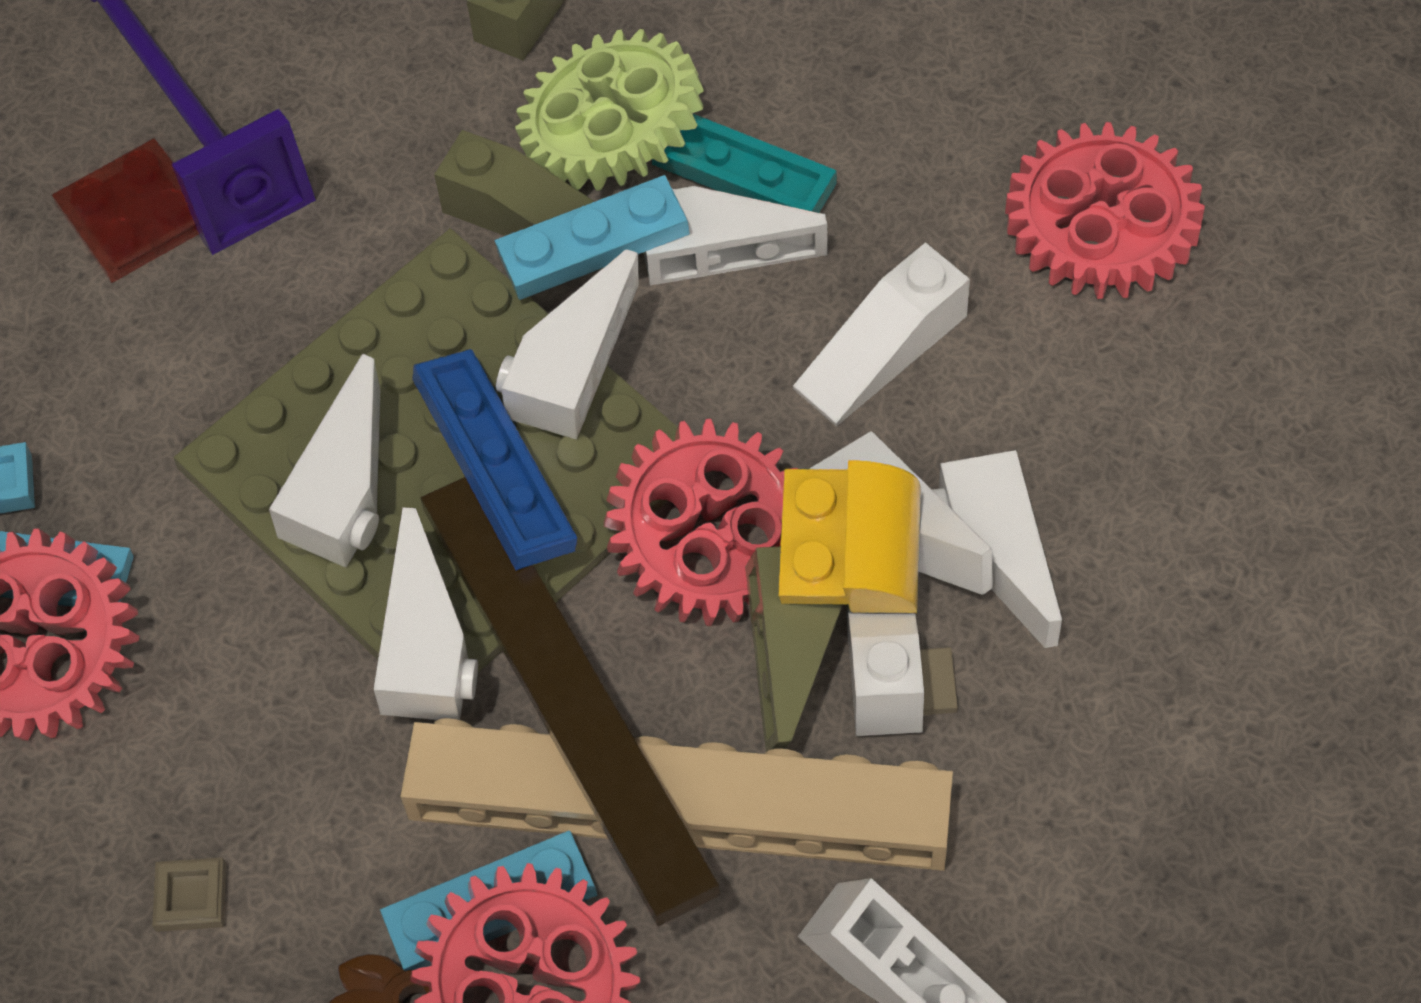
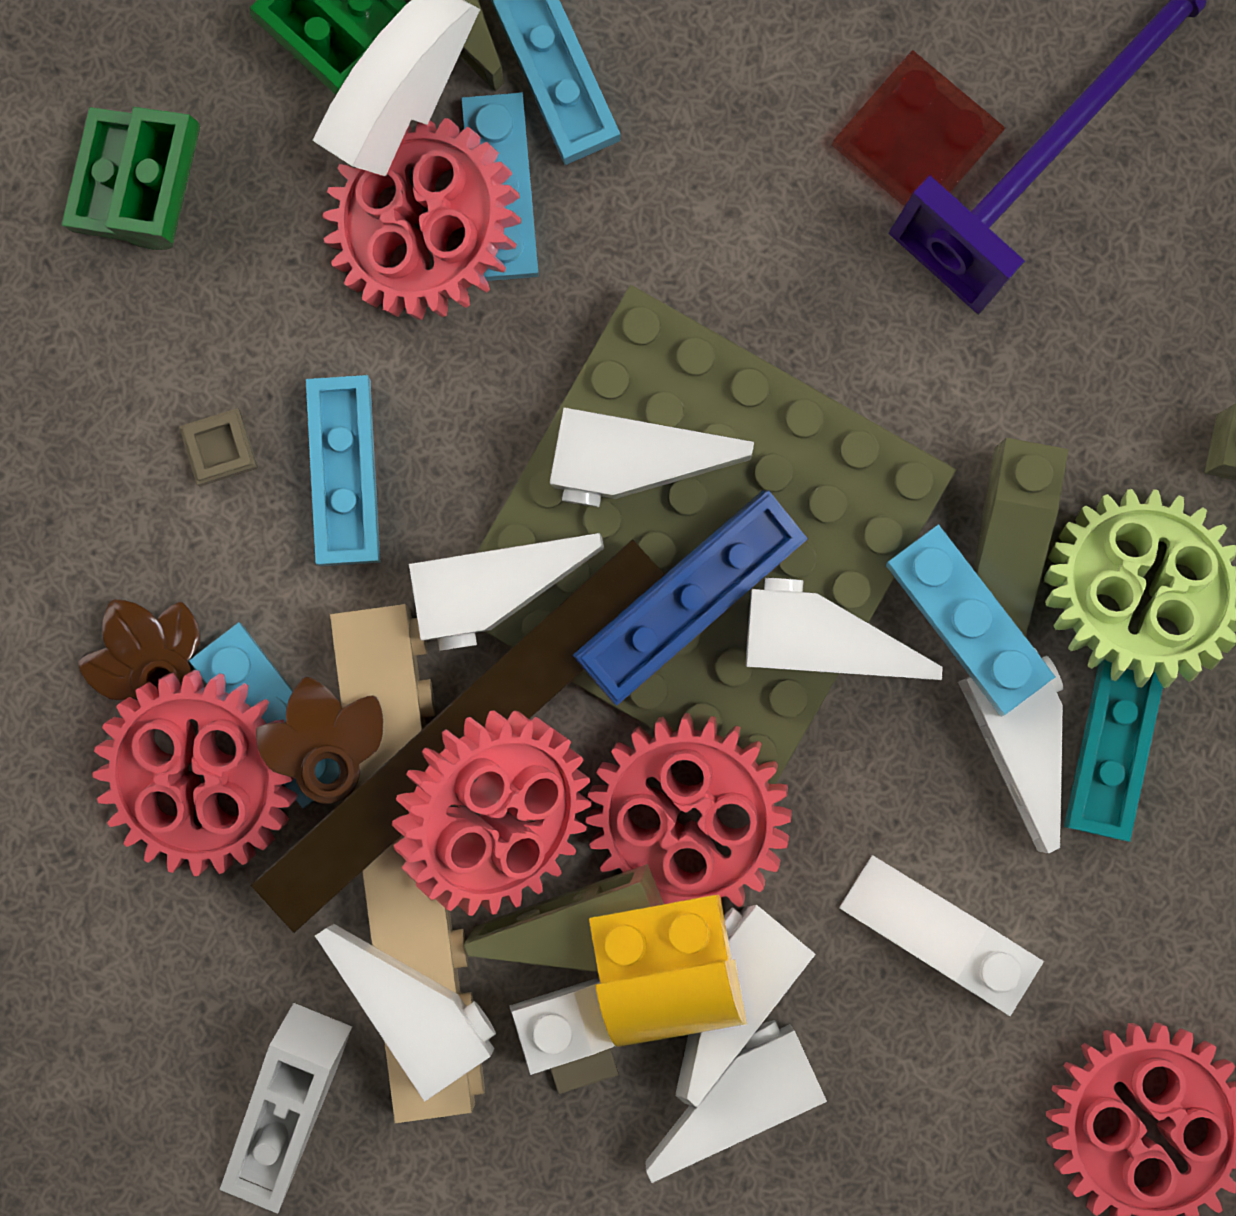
camera: 70 degrees right, 25 degrees up
(259, 771) = (343, 470): none -> medium azure plate
(521, 824) = (322, 730): none -> reddish brown plate
(693, 699) = (481, 858): none -> coral gear
(837, 785) = (416, 1017): none -> white slope

